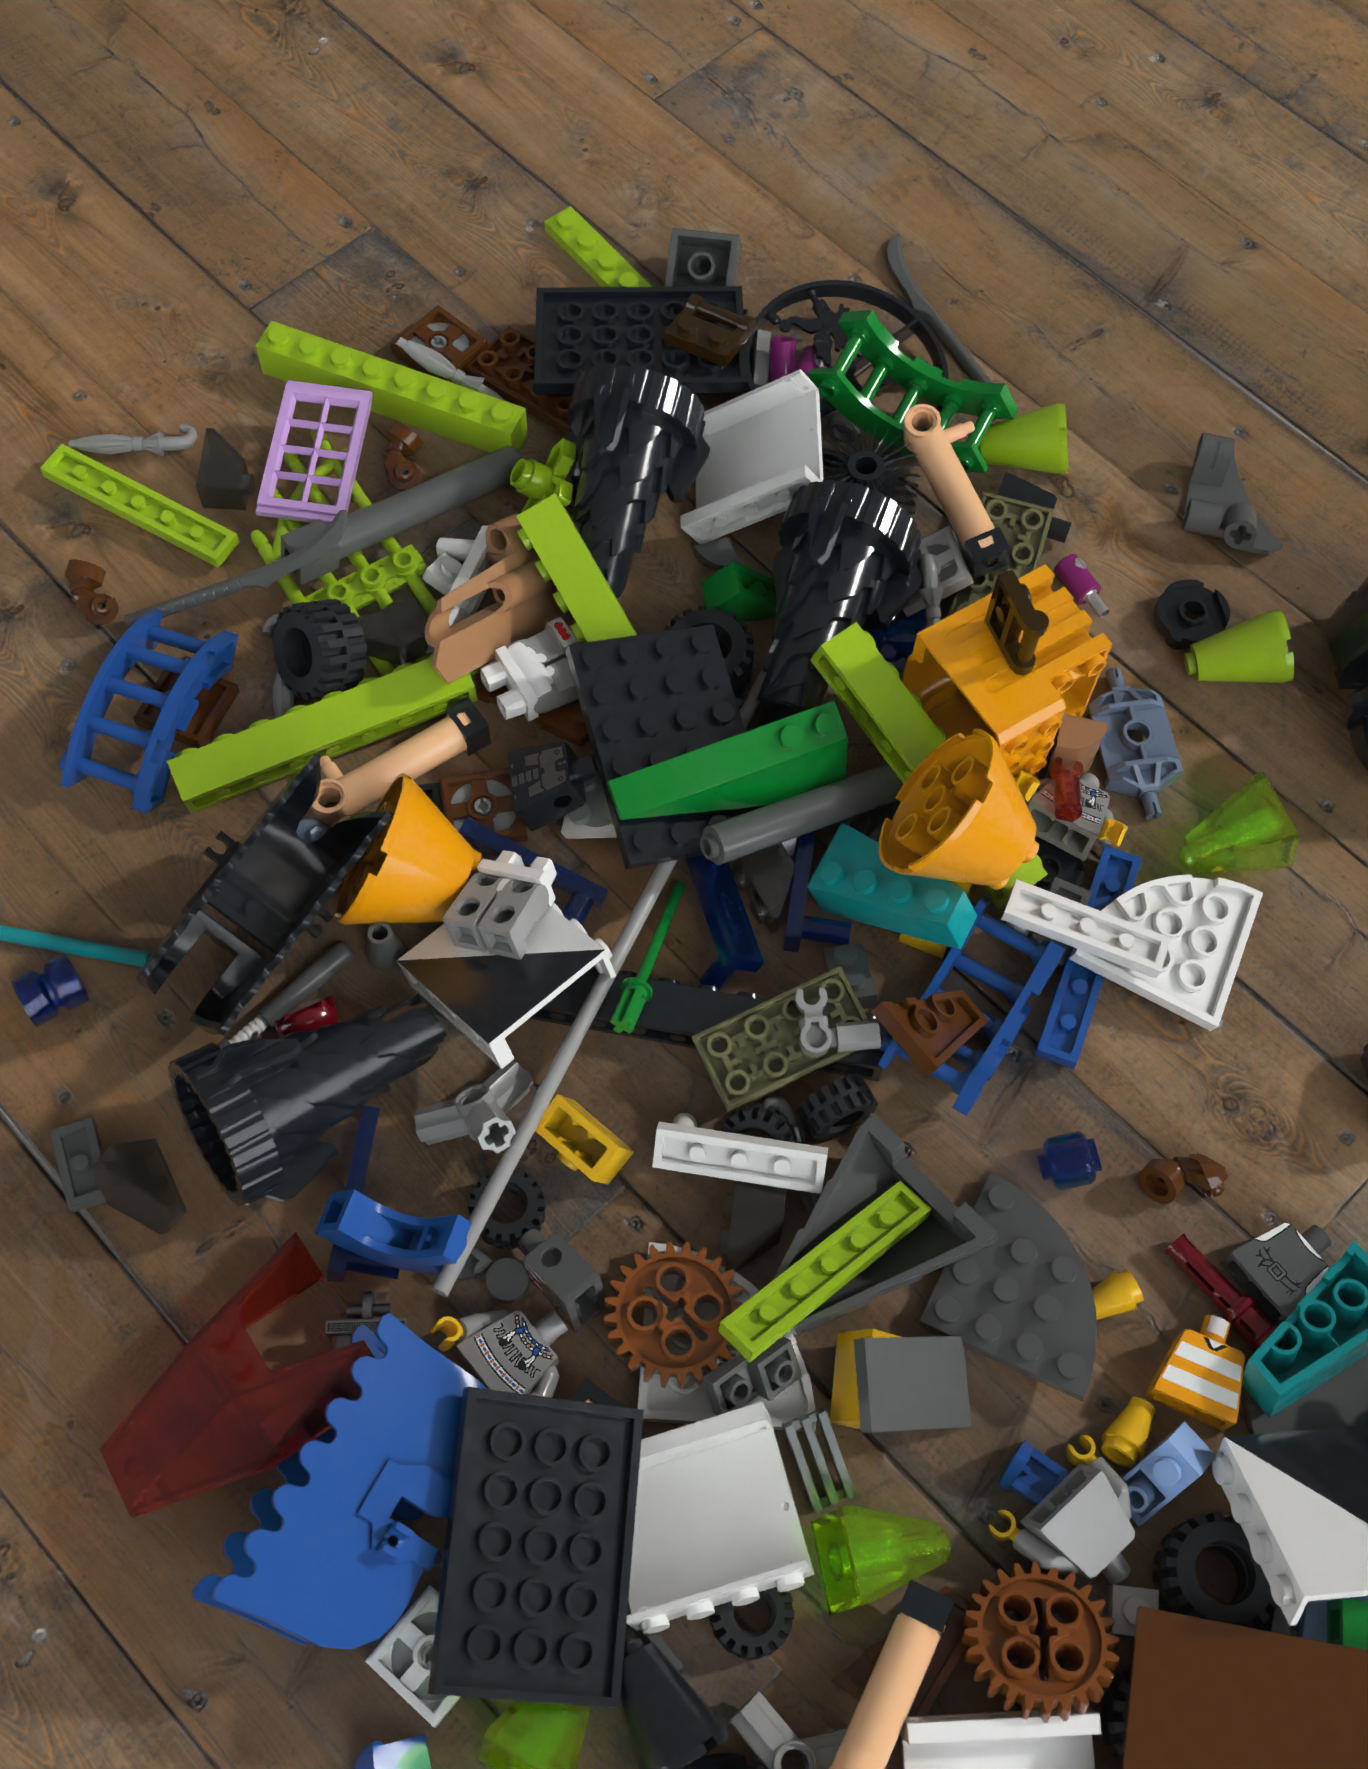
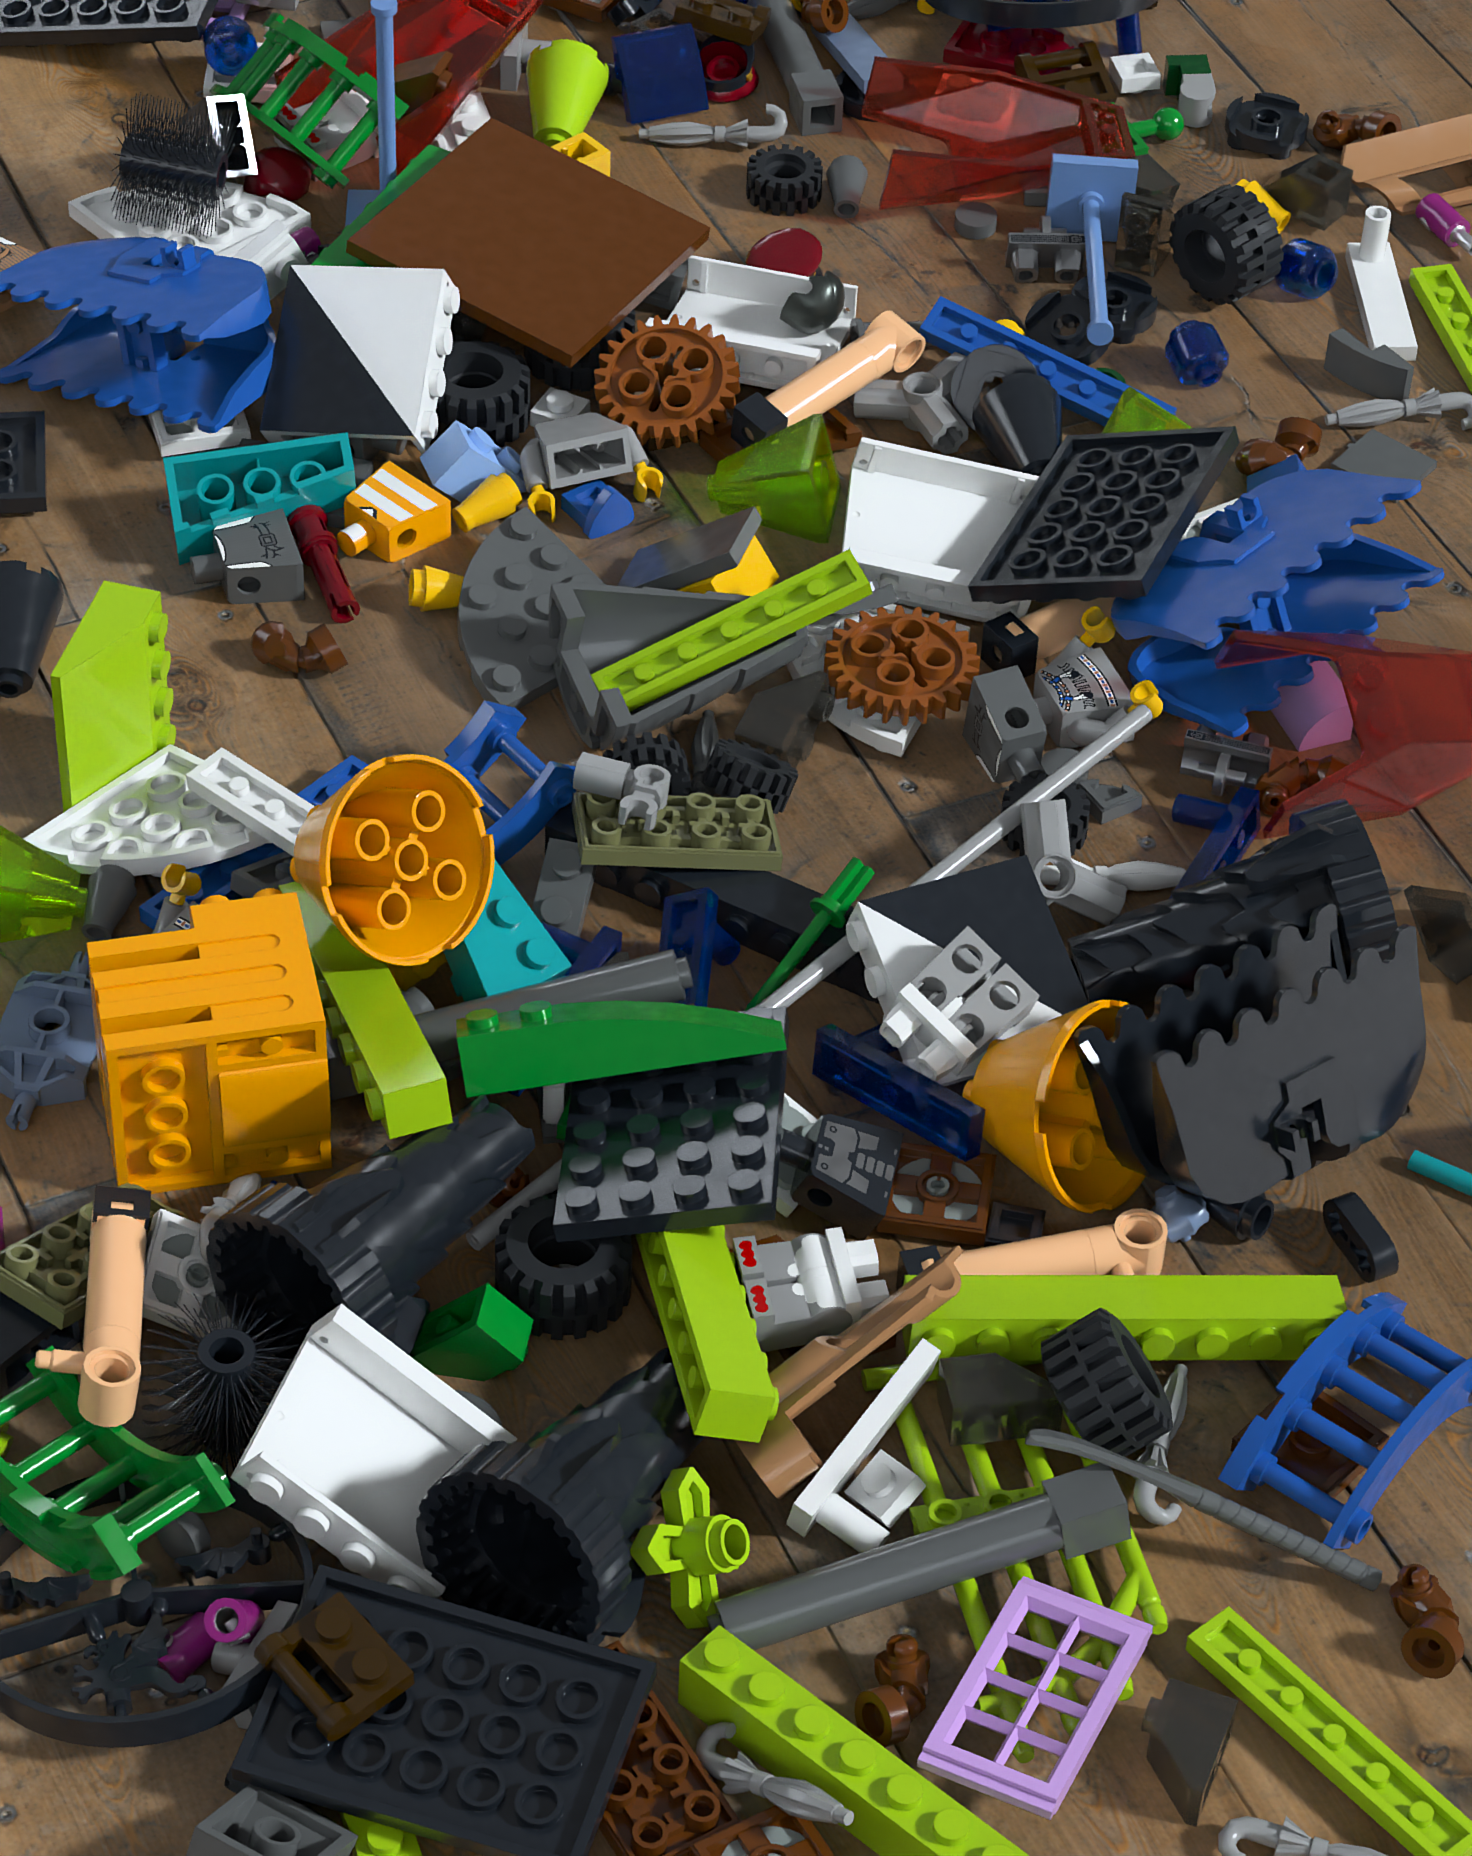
camera: 160 degrees left, 20 degrees down
(174, 864) = (1360, 1237): none -> black beam
(277, 1336) = (1287, 779): none -> reddish brown arm
(391, 1236) = (1171, 782): blue arch -> none
(420, 1170) = (1134, 874): none -> white piece
(582, 1140) = (934, 820): yellow brick -> none
(738, 1157) = (839, 778): white piece -> none
(831, 1494) = (801, 550): dark grey tile -> none
(931, 1027) = (521, 762): reddish brown wing -> none
(1008, 615) = (213, 936): dark brown plate -> none
(1070, 1160) = (413, 687): clear blue head -> none
(1167, 857) = (108, 898): none -> dark grey cone
(1275, 982) = (112, 690): none -> lime slope

